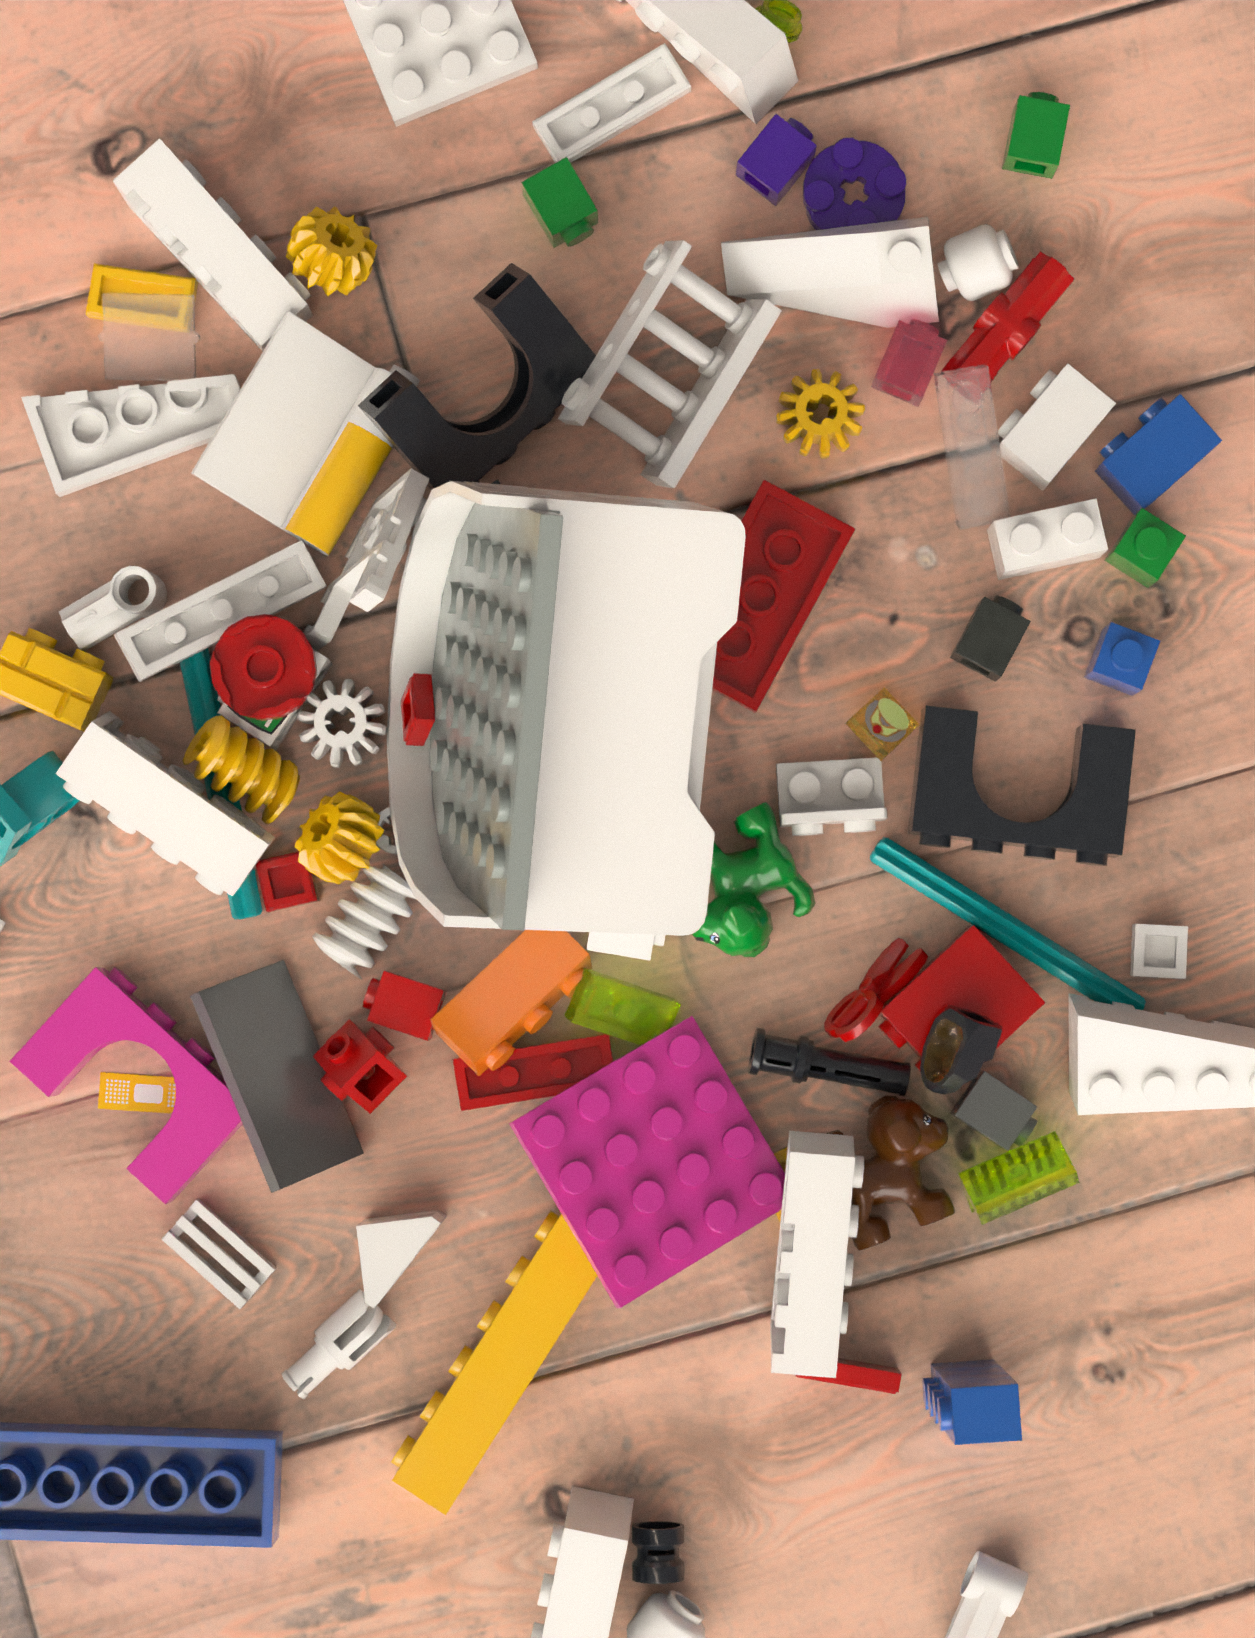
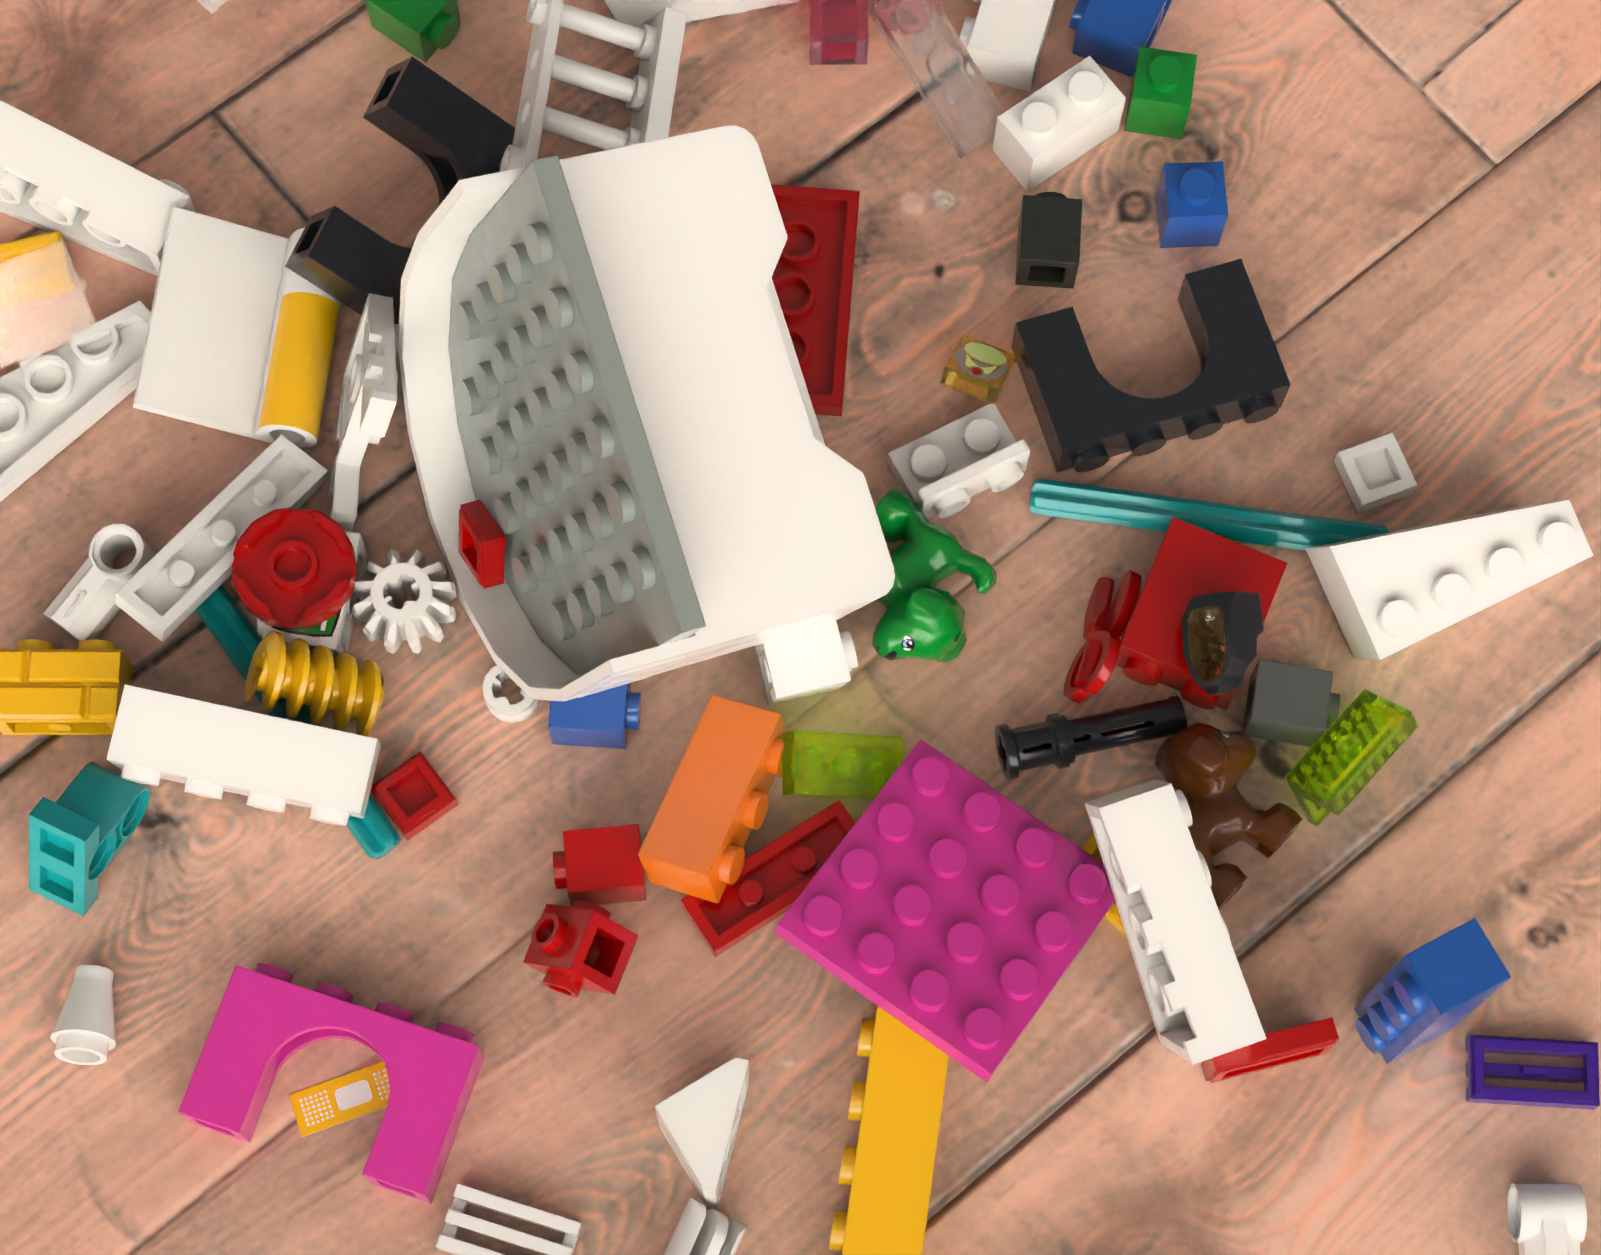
camera: 30 degrees left, 15 degrees down
(272, 1077) = (491, 1001): dark grey tile -> none
(331, 251) = (193, 140): yellow gear -> none
(339, 838) = (452, 715): yellow gear -> none
(366, 919) = (516, 790): white piece -> none
(829, 429) = (772, 80): yellow gear -> none
(999, 1452) = (1478, 1070): none -> dark purple tile

